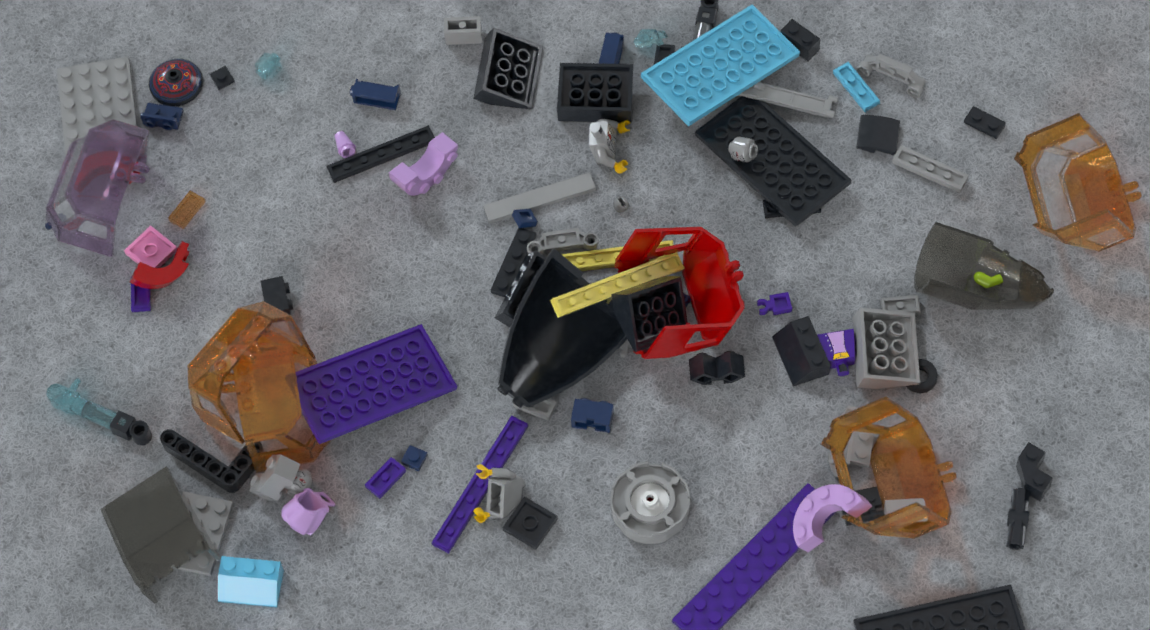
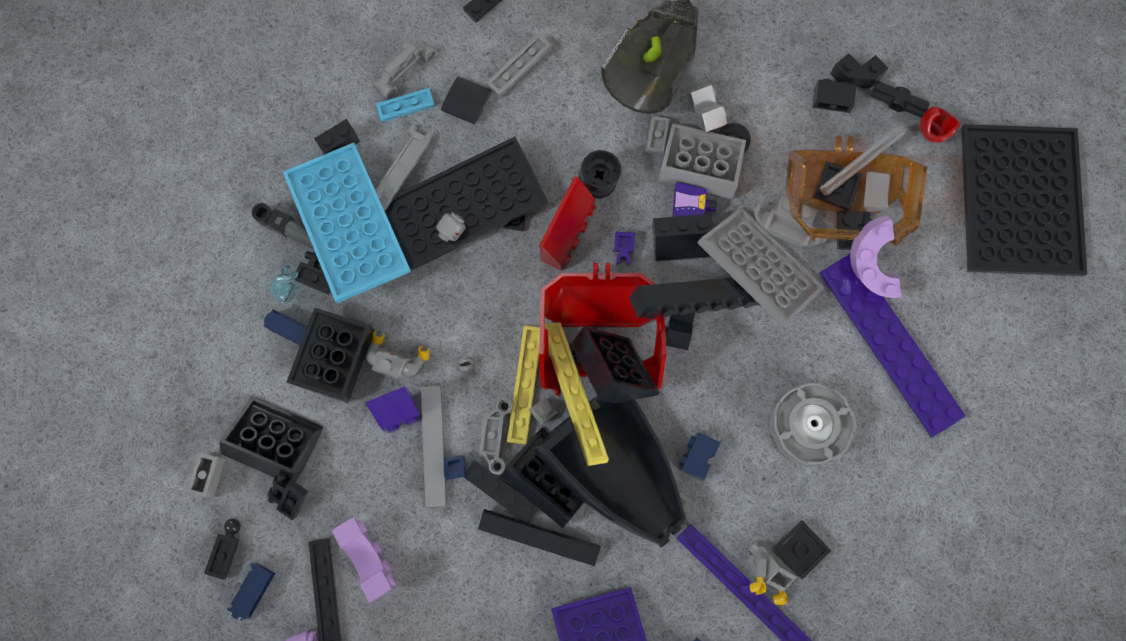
camera: 80 degrees left, 15 degrees up
(404, 64) = (223, 550): none -> black plate
(463, 95) = (292, 498): none -> black plate
(481, 302) = (539, 537): none -> black tile
(561, 152) = (394, 409): none -> dark purple slope
(596, 274) = (543, 411): none -> light grey plate
(739, 364) = (689, 297): none -> black brick
(777, 242) = (567, 225): none -> red slope
(791, 419) = (761, 266): none -> light grey plate
(838, 251) = (604, 165): none -> black wheel
(900, 476) = (844, 194): none -> black plate
(934, 490) = (863, 160): none -> light grey axle
(944, 339) = (703, 103): none -> light grey brick
(999, 455) = (834, 96): none -> black brick
(999, 556) = (938, 125): none -> red piece

